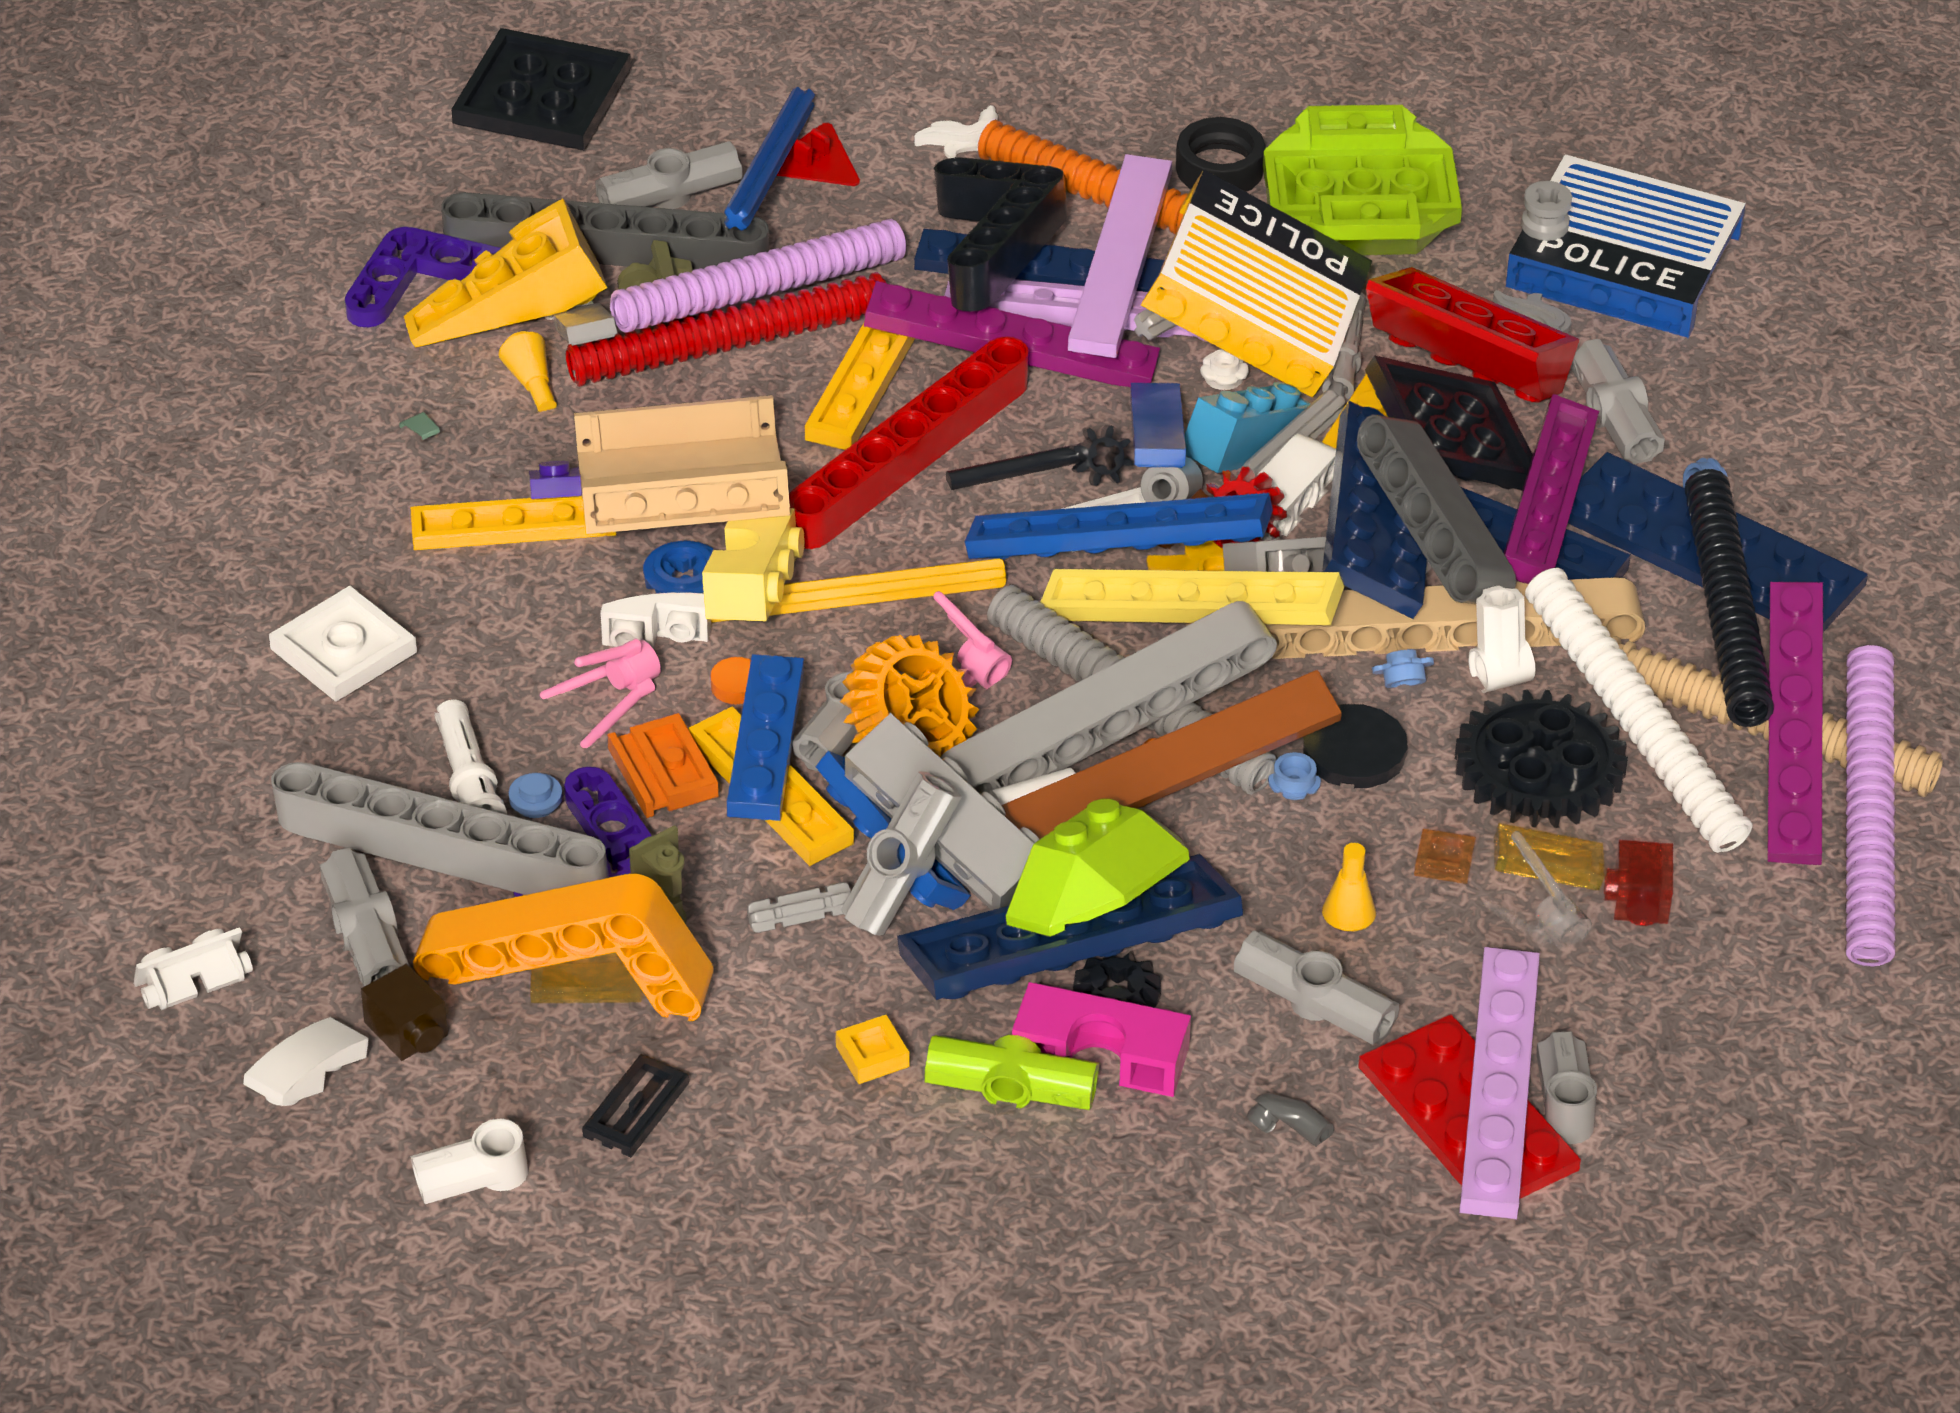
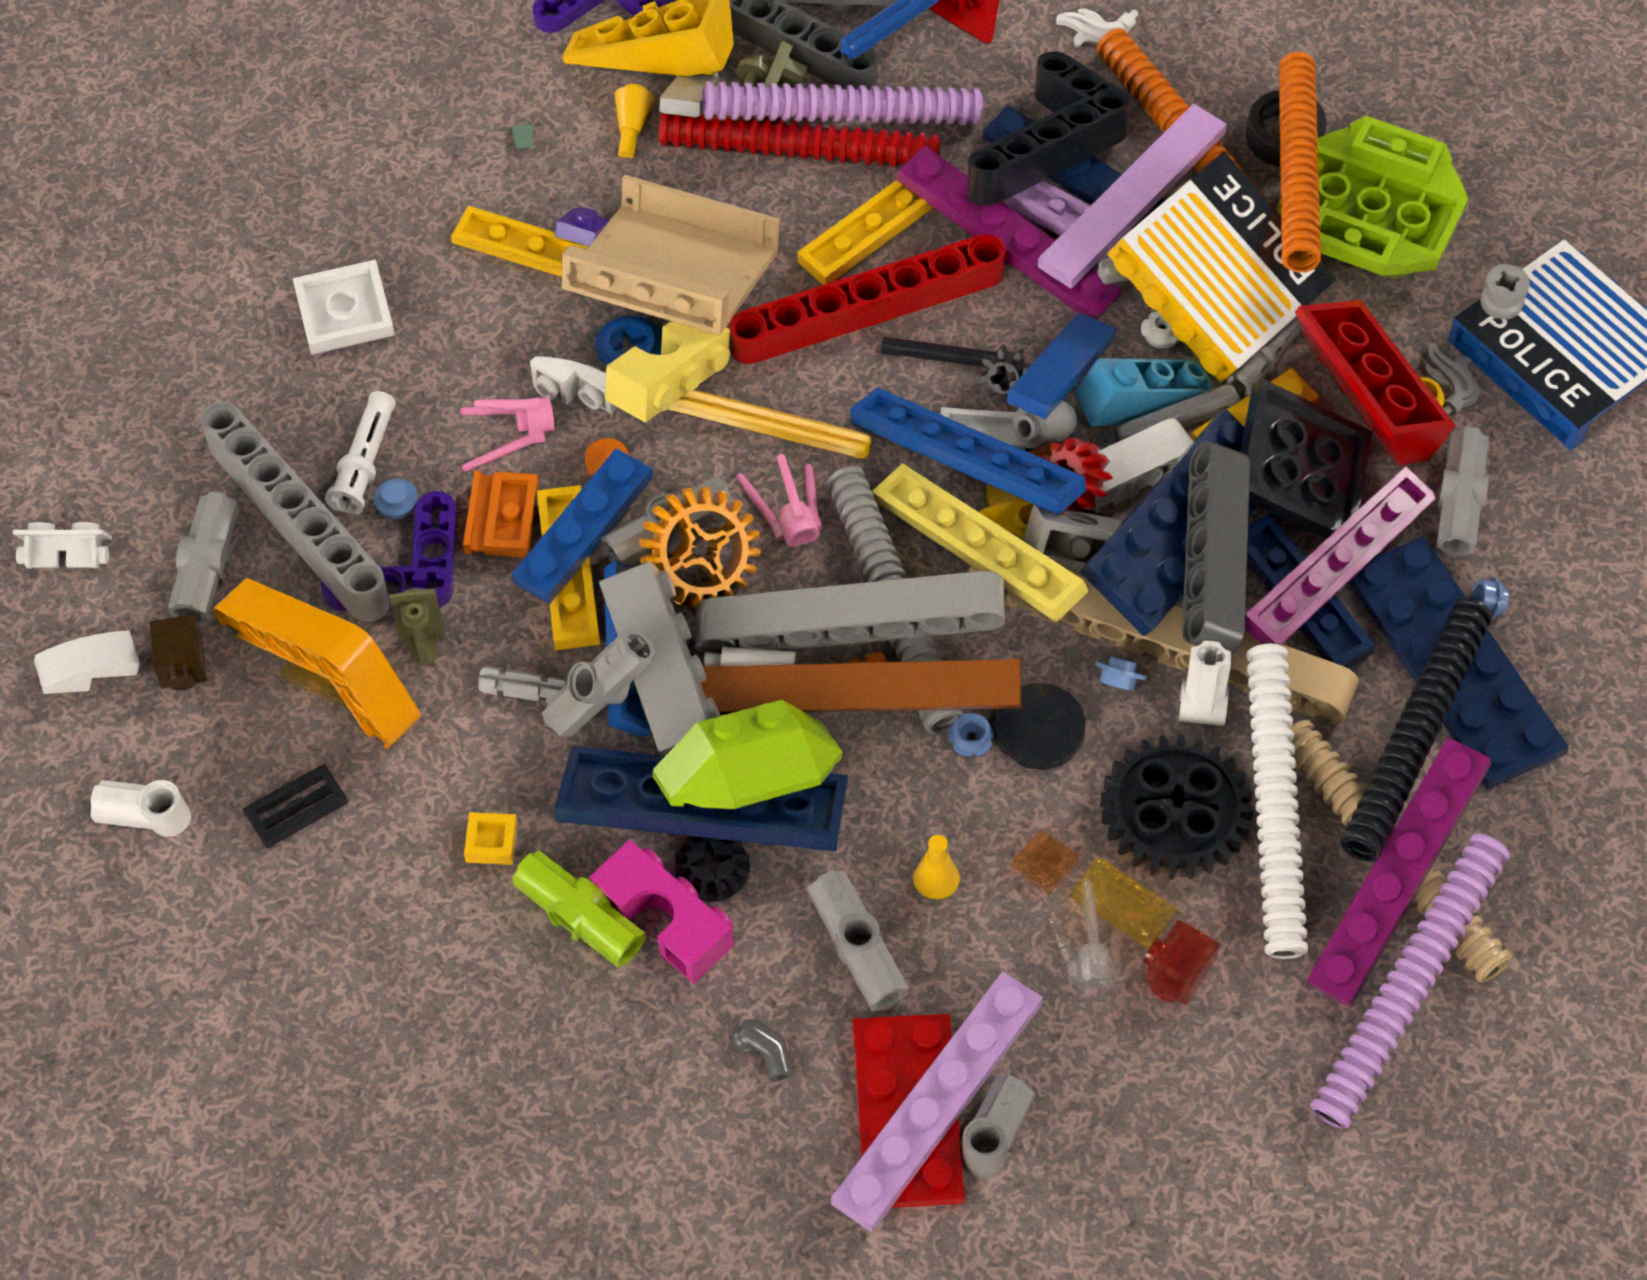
camera: 30 degrees right, 15 degrees up
(1274, 164) = (1299, 163): none -> orange piece

